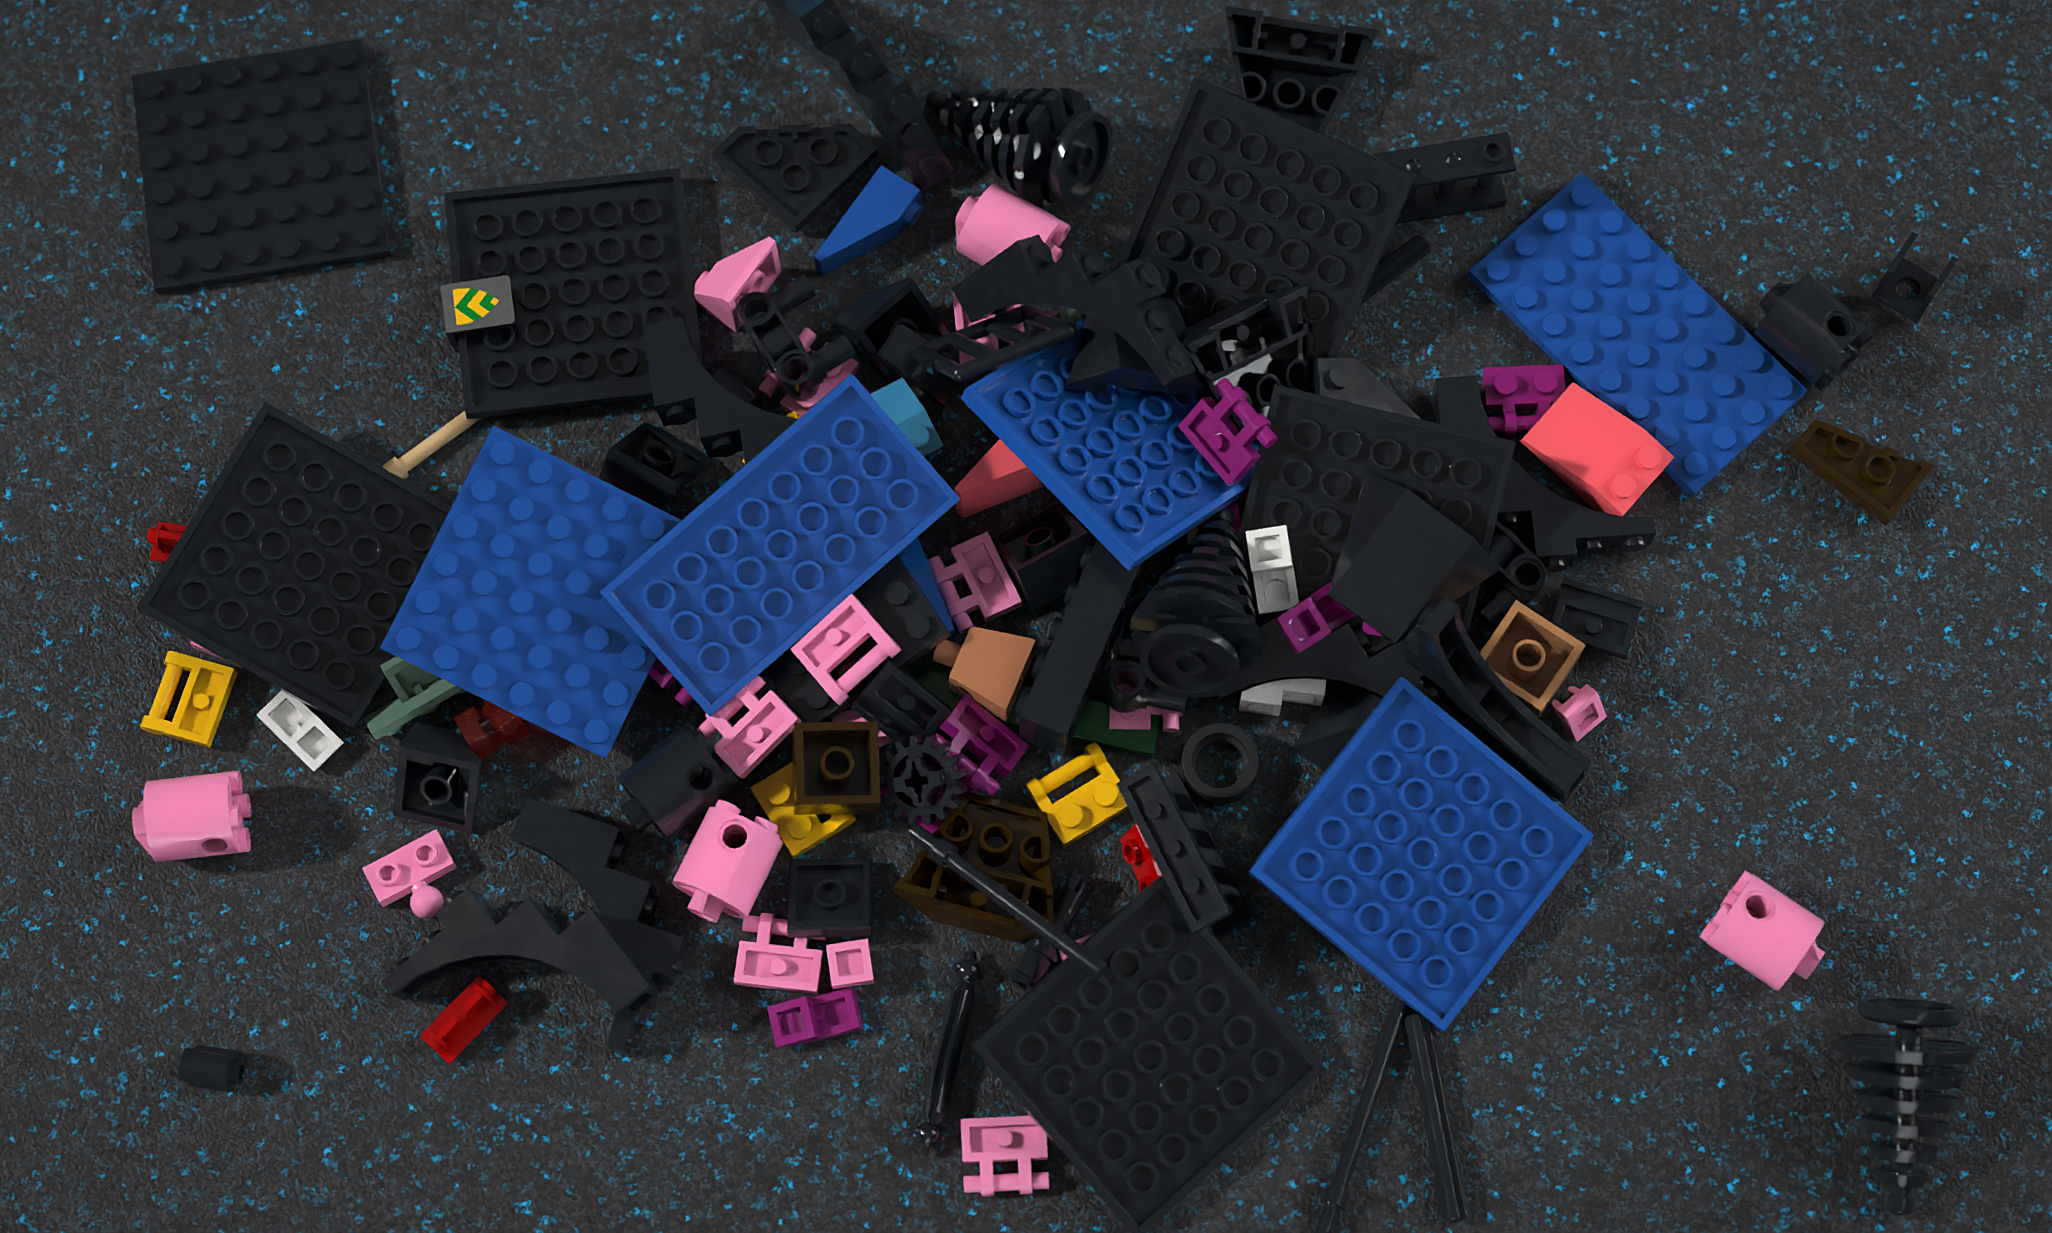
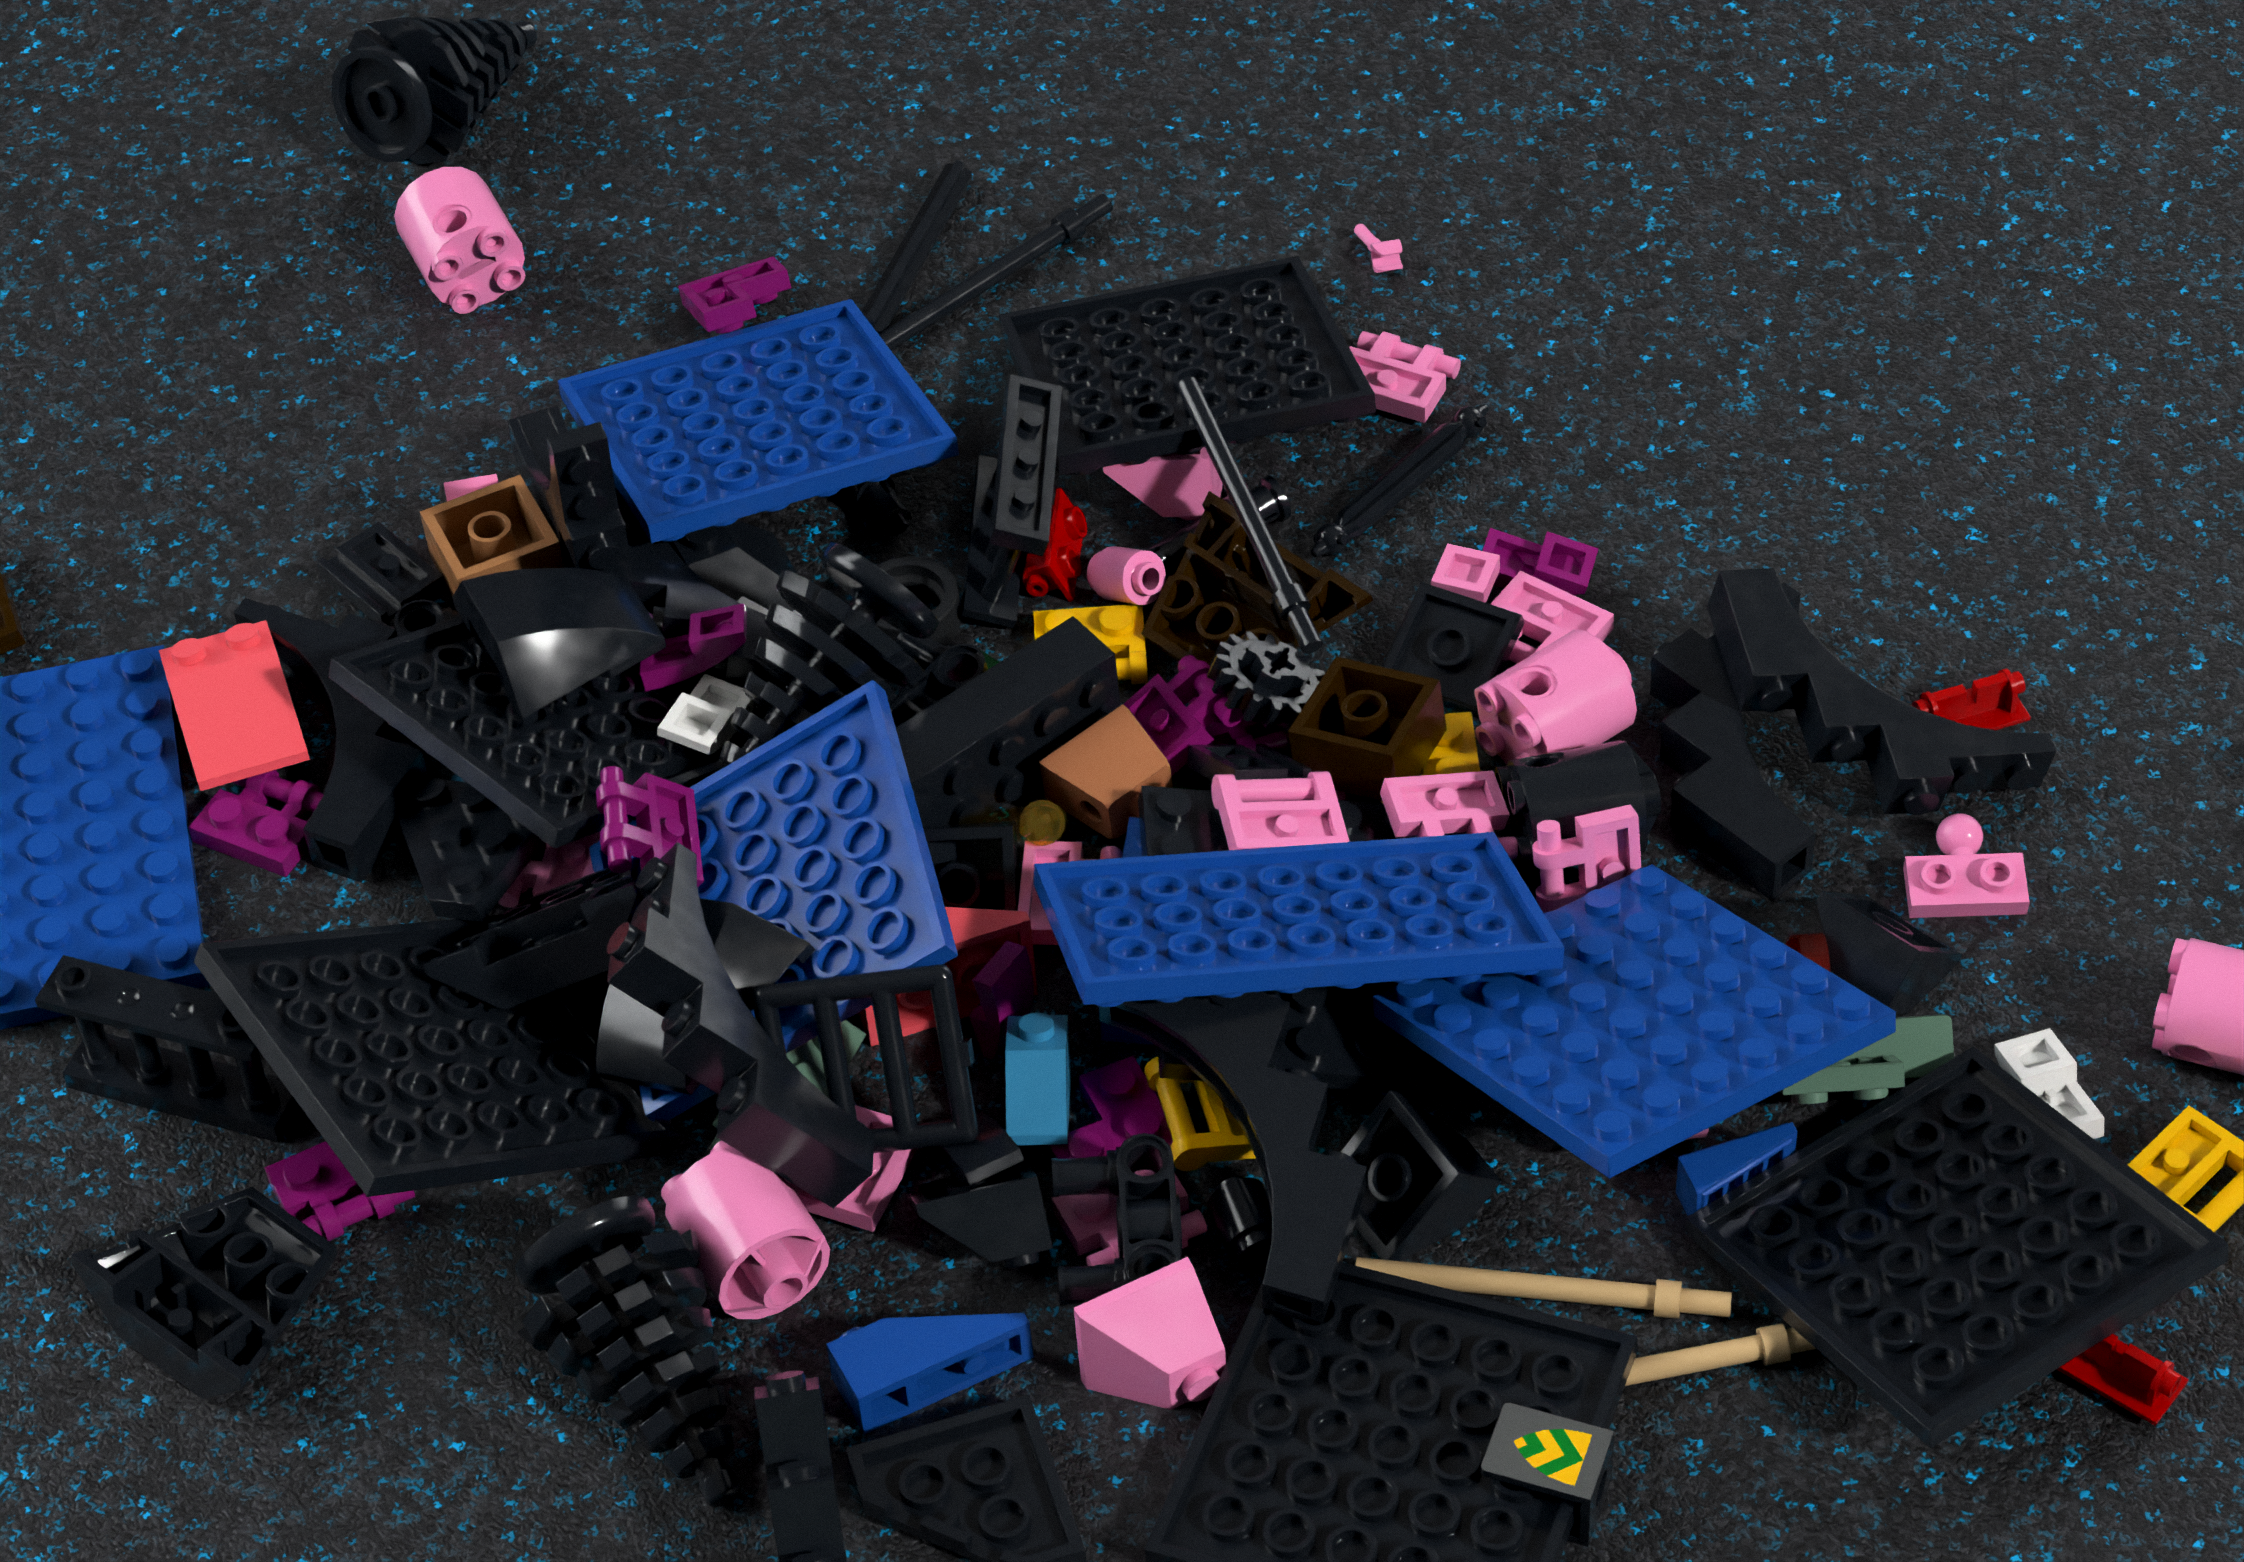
camera: 150 degrees left, 25 degrees down
(556, 441) = (1665, 1298): none -> tan bar
(636, 742) = (1603, 849): none -> bright pink plate
(954, 456) = (1004, 990): none -> magenta slope
(1011, 605) = (1043, 822): none -> clear yellow axle
(1083, 853) = (1126, 575): none -> bright pink brick
(1542, 985) = (729, 297): none -> magenta plate

